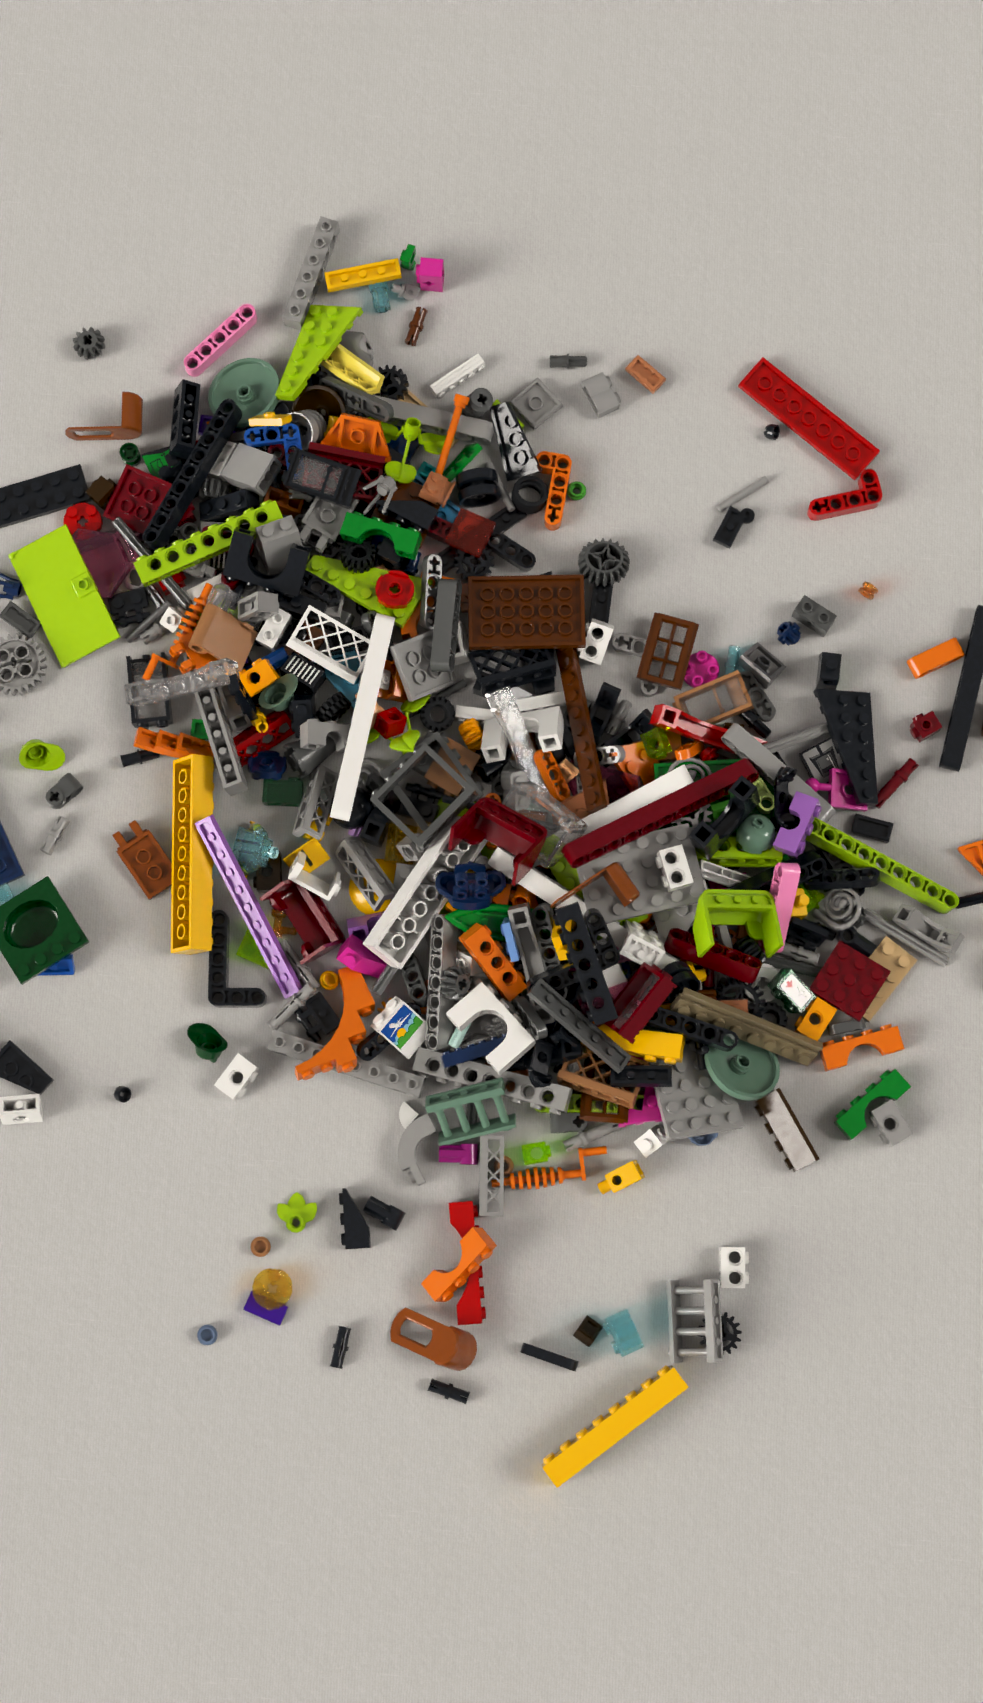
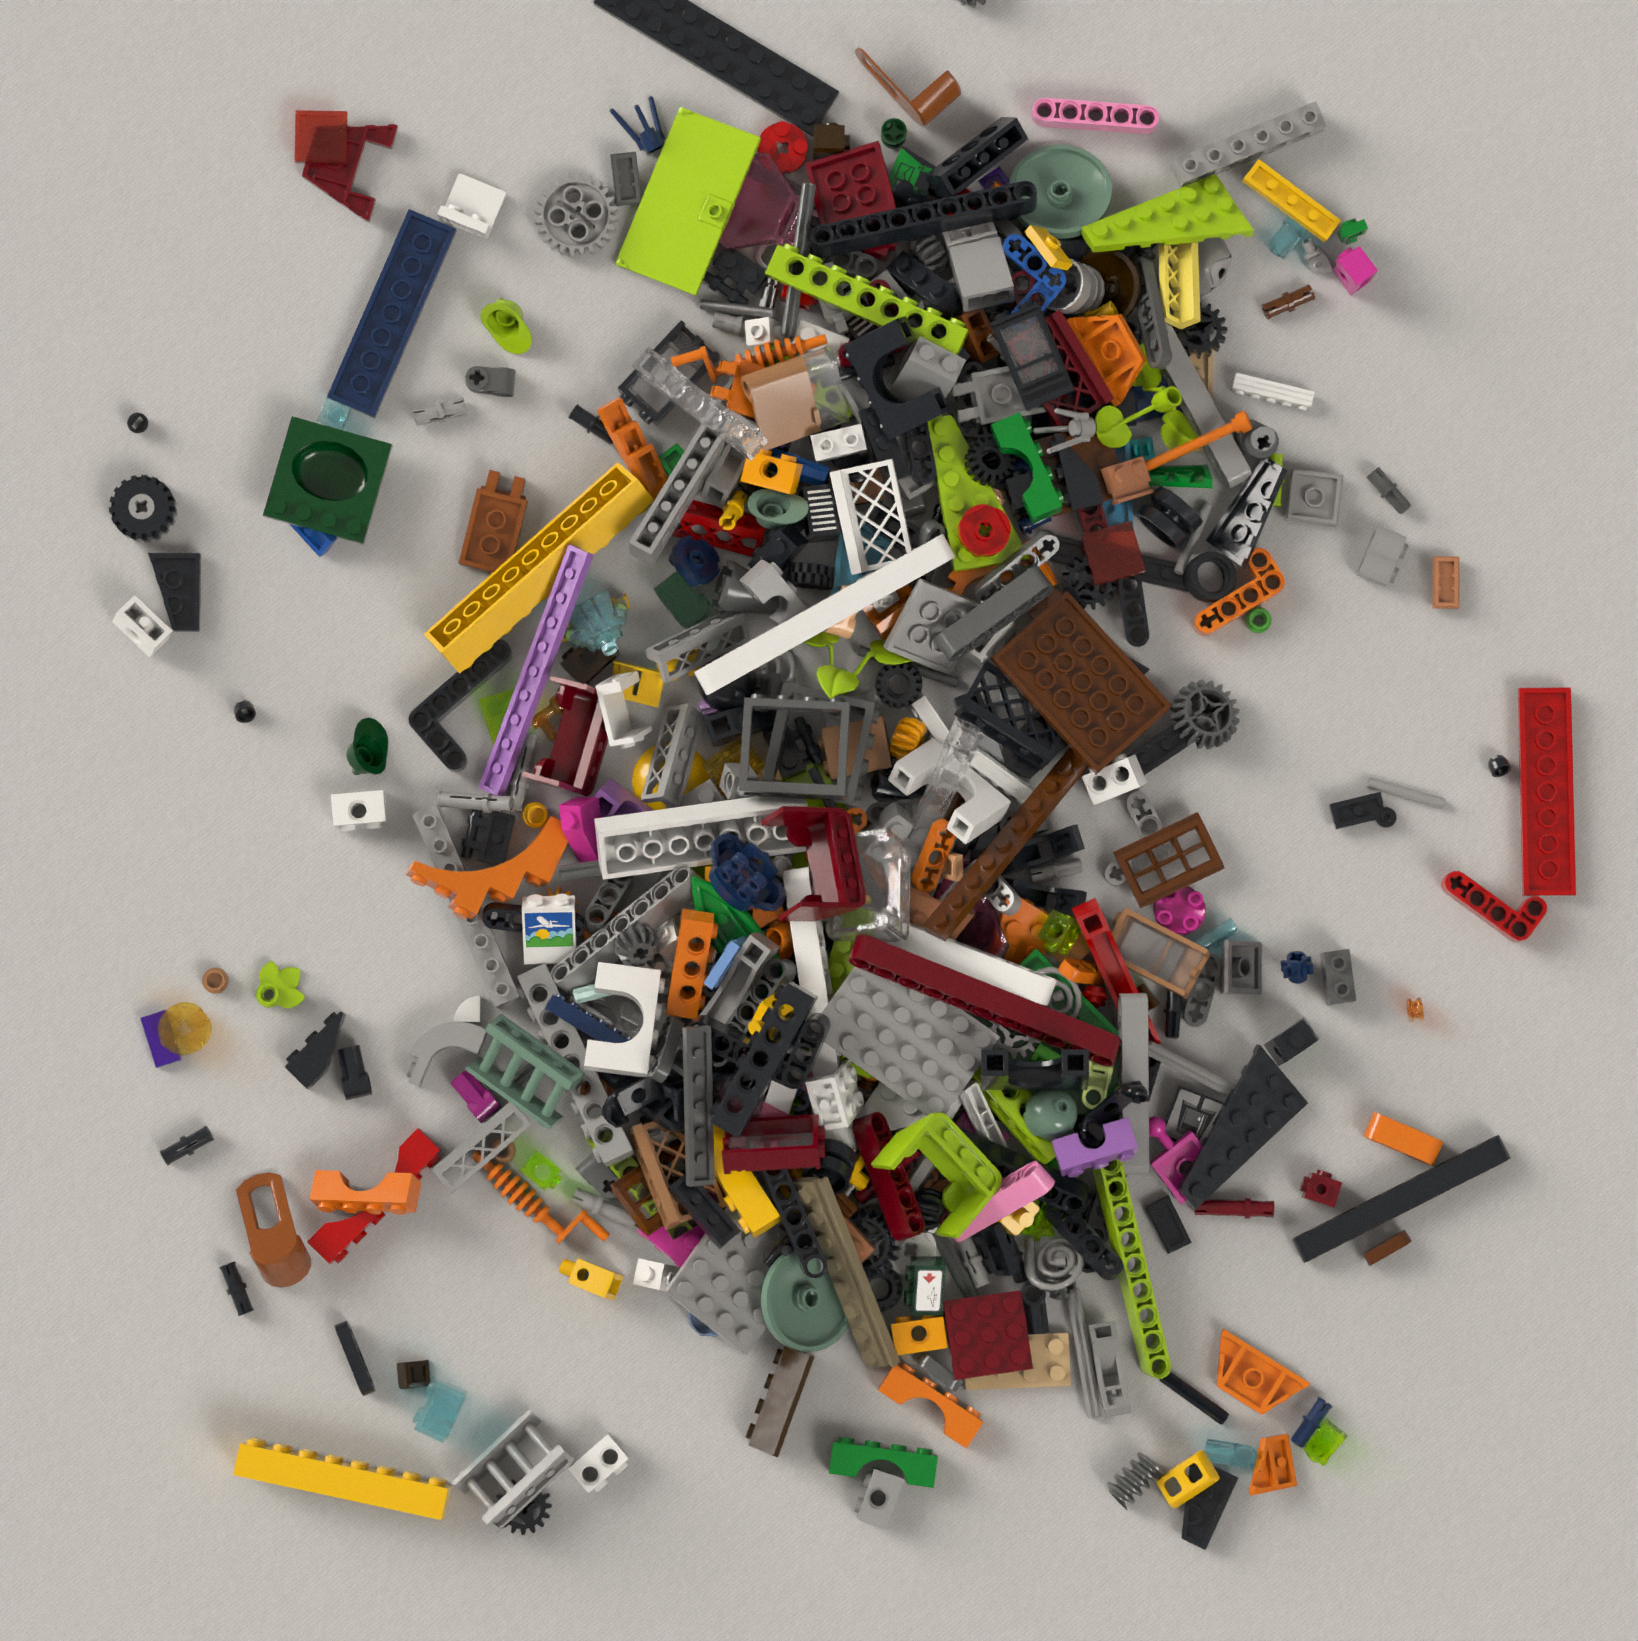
camera: 40 degrees right, 5 degrees up
(207, 1335) = (85, 1004): sand blue plate -> none
(242, 697) = (737, 478): black plate -> none
(258, 607) = (843, 410): light grey brick -> none
(390, 722) = (846, 646): red brick -> none
(616, 878) = (875, 1019): dark orange piece -> none
(680, 868) = (944, 1067): white brick -> none

